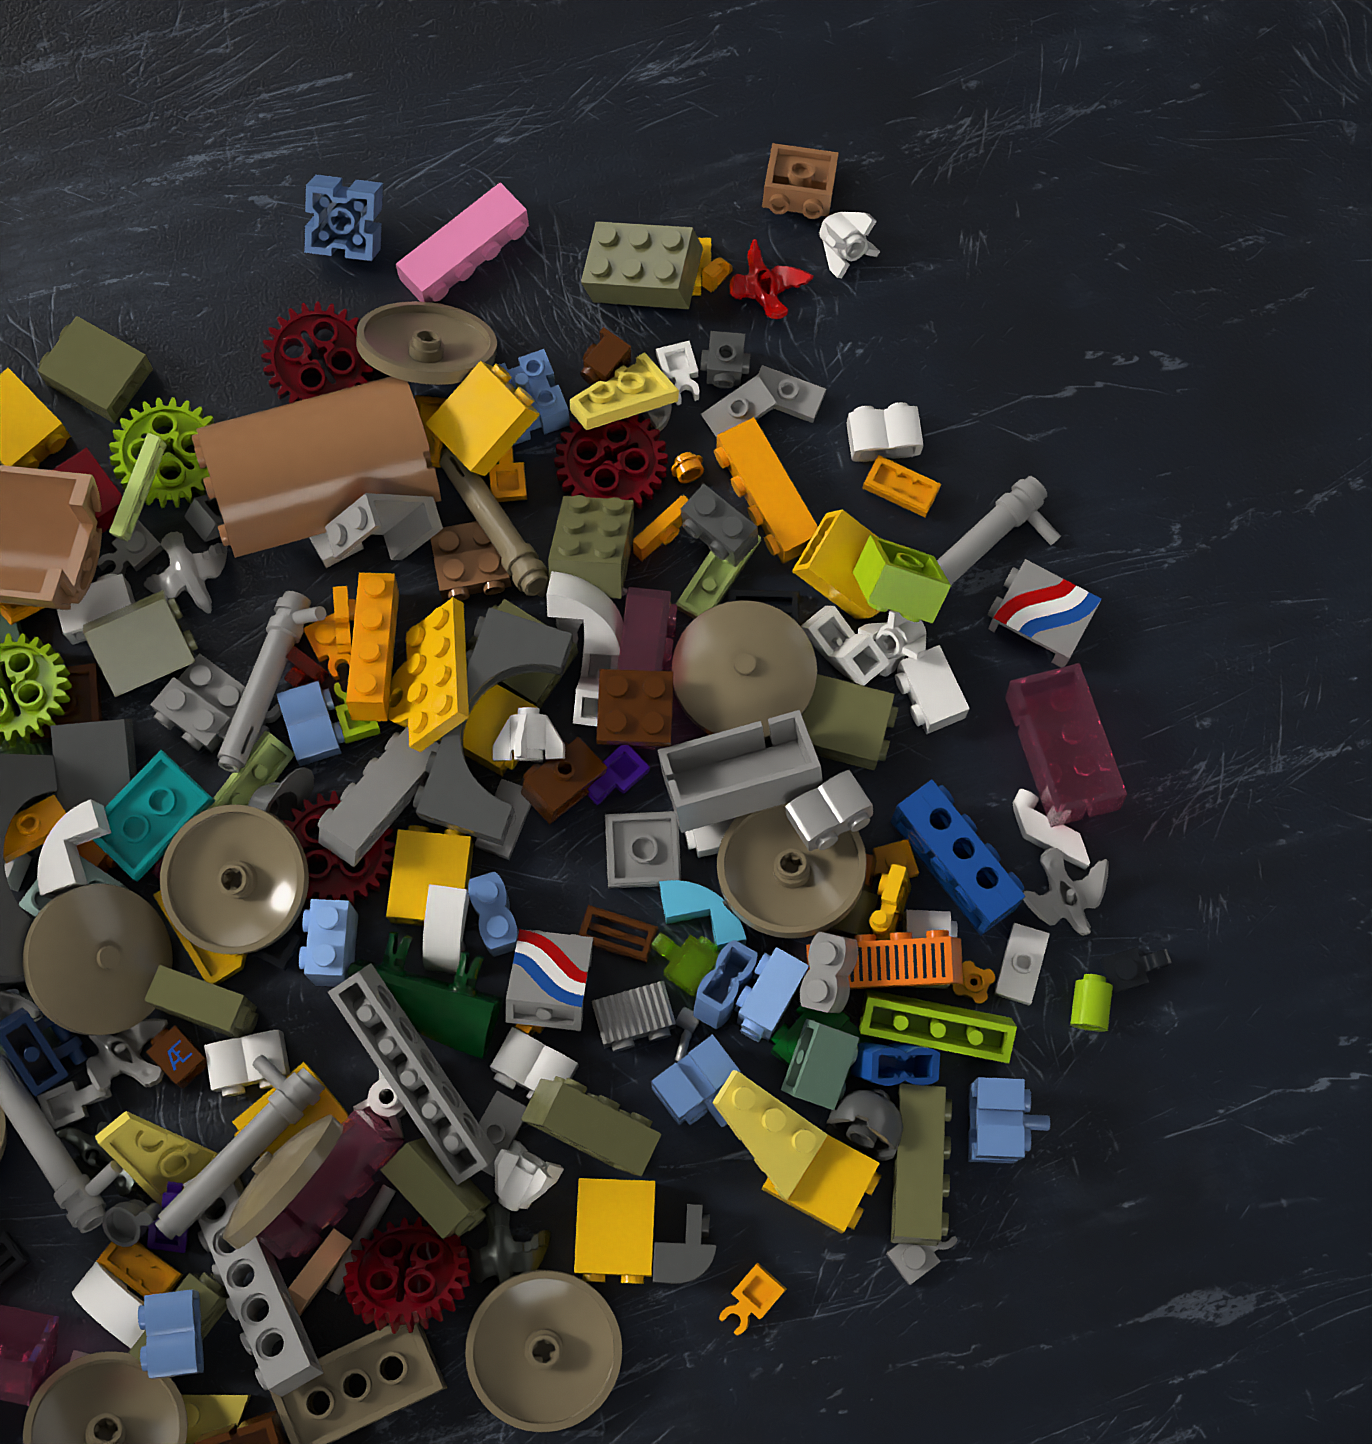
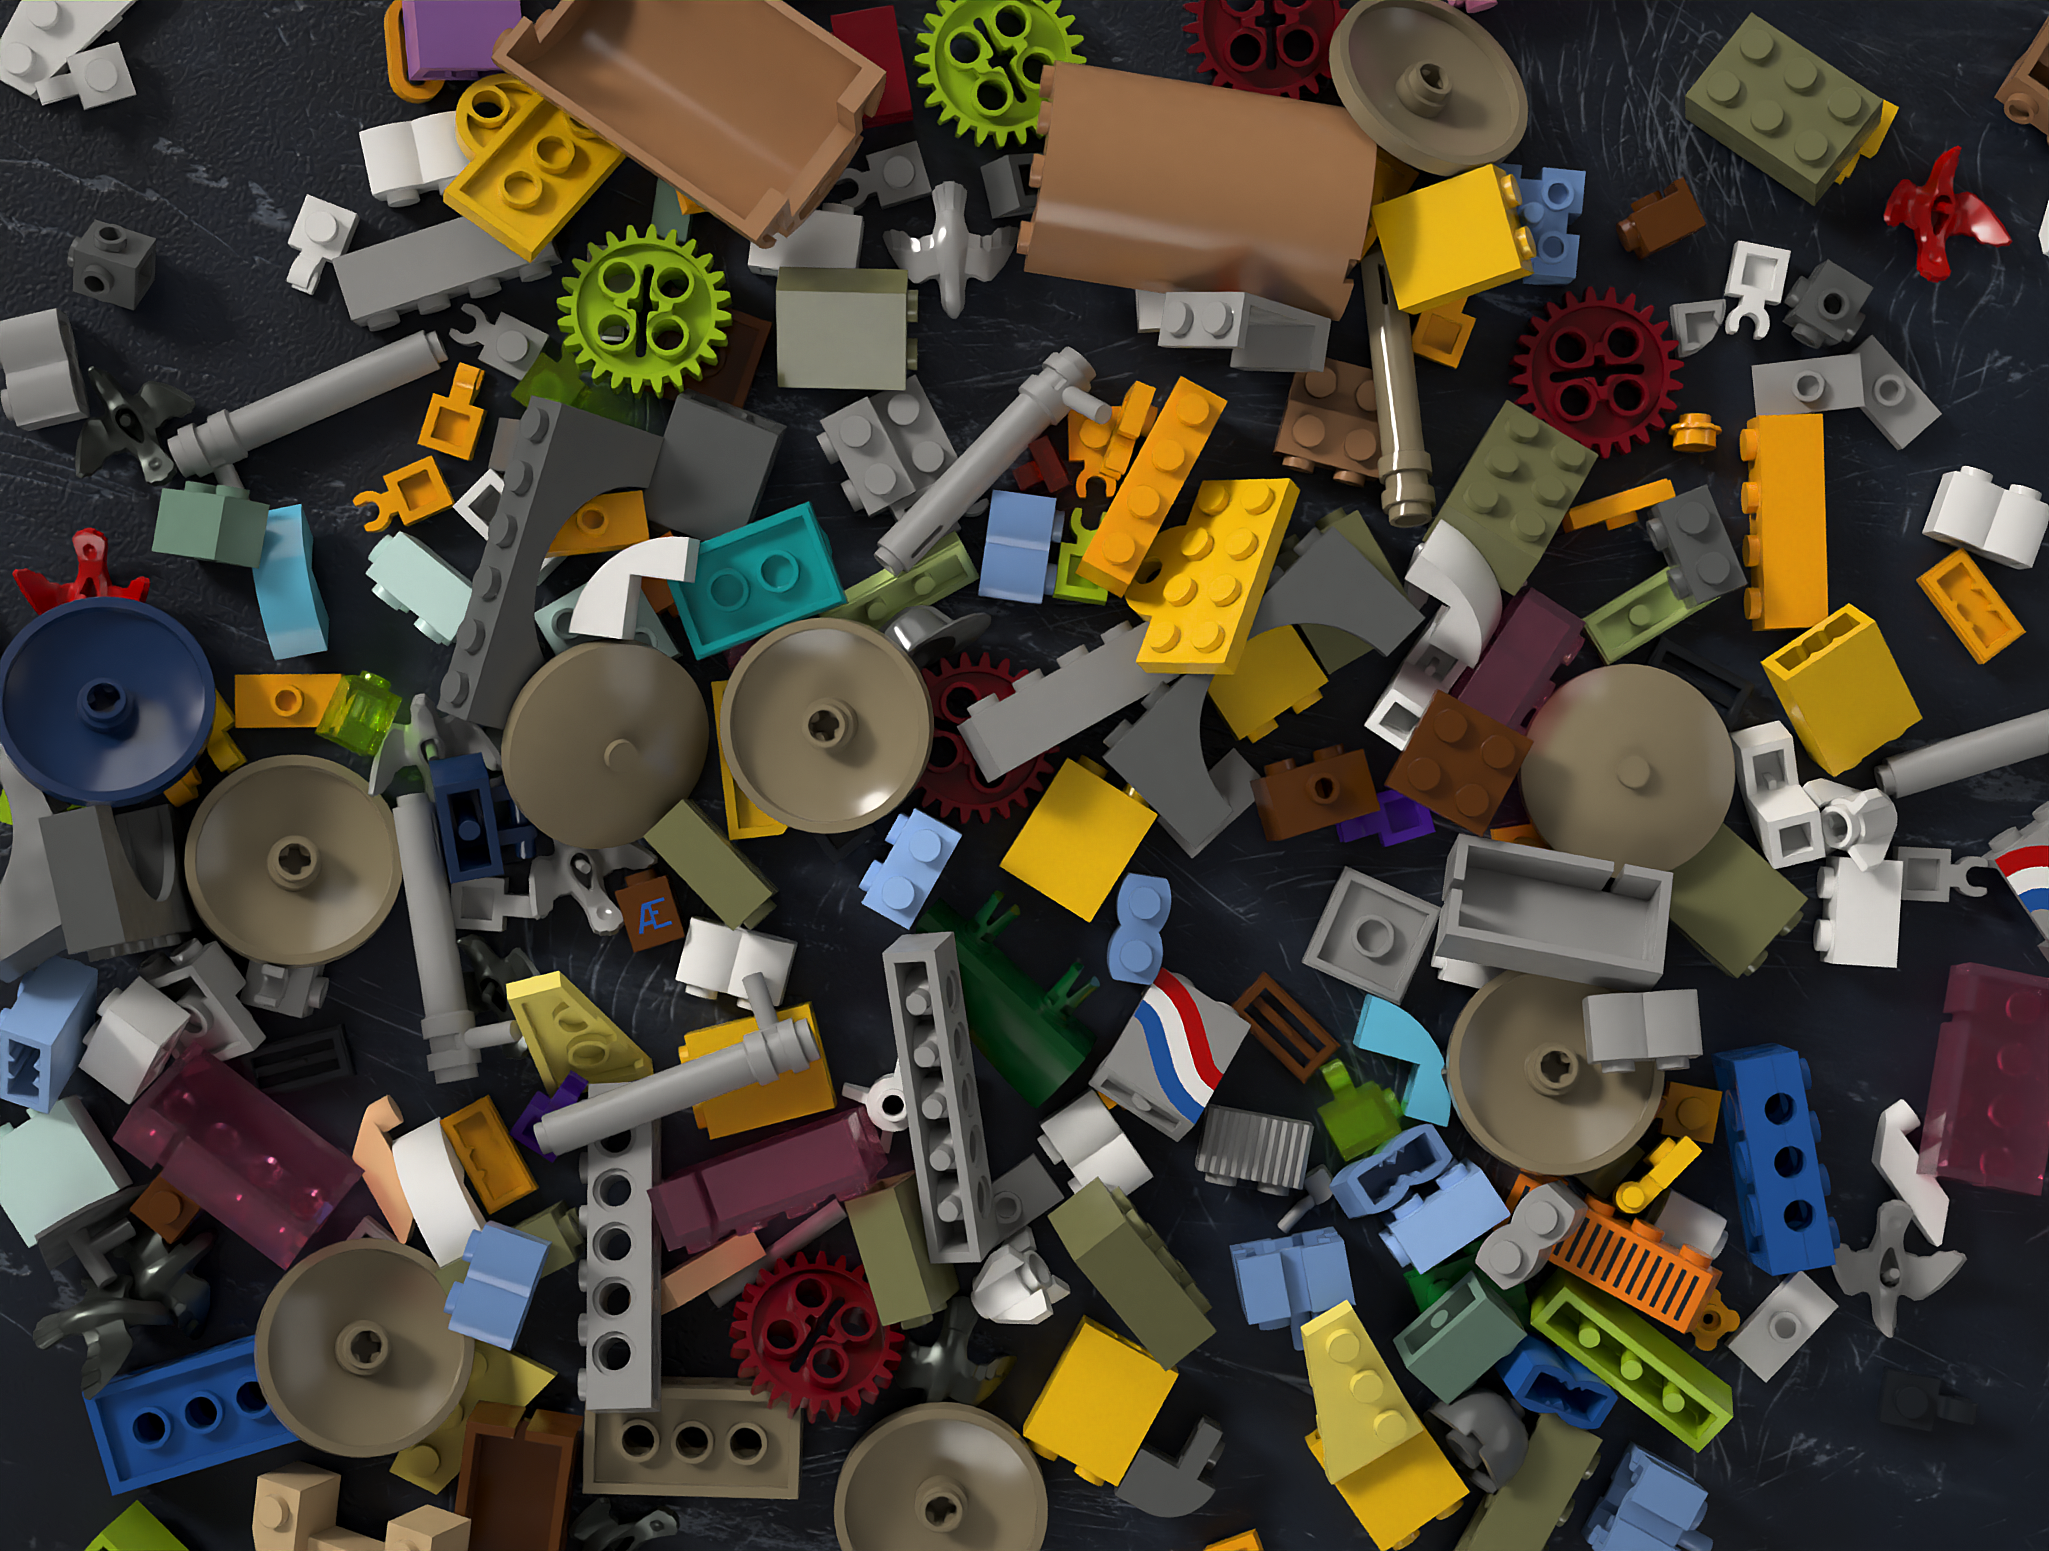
camera: 25 degrees right, 15 degrees up
(70, 1313) = (375, 1156): none -> light nougat piece
(129, 1221) = (503, 1097): dark grey piece -> none
(138, 487) = (938, 105): yellowish green tile -> none
(280, 1179) = (719, 1170): dark tan dish -> none
(444, 928) = (1068, 921): white brick -> none
(528, 737) = (1297, 723): white brick -> none
(624, 395) = (1668, 292): light yellow wing -> none
(715, 273) = (1878, 165): light orange tile -> none
(901, 580) = (1902, 761): lime brick -> none
(963, 650) = (1930, 874): none -> light grey plate
(1091, 1003) = (1843, 1422): lime brick -> none

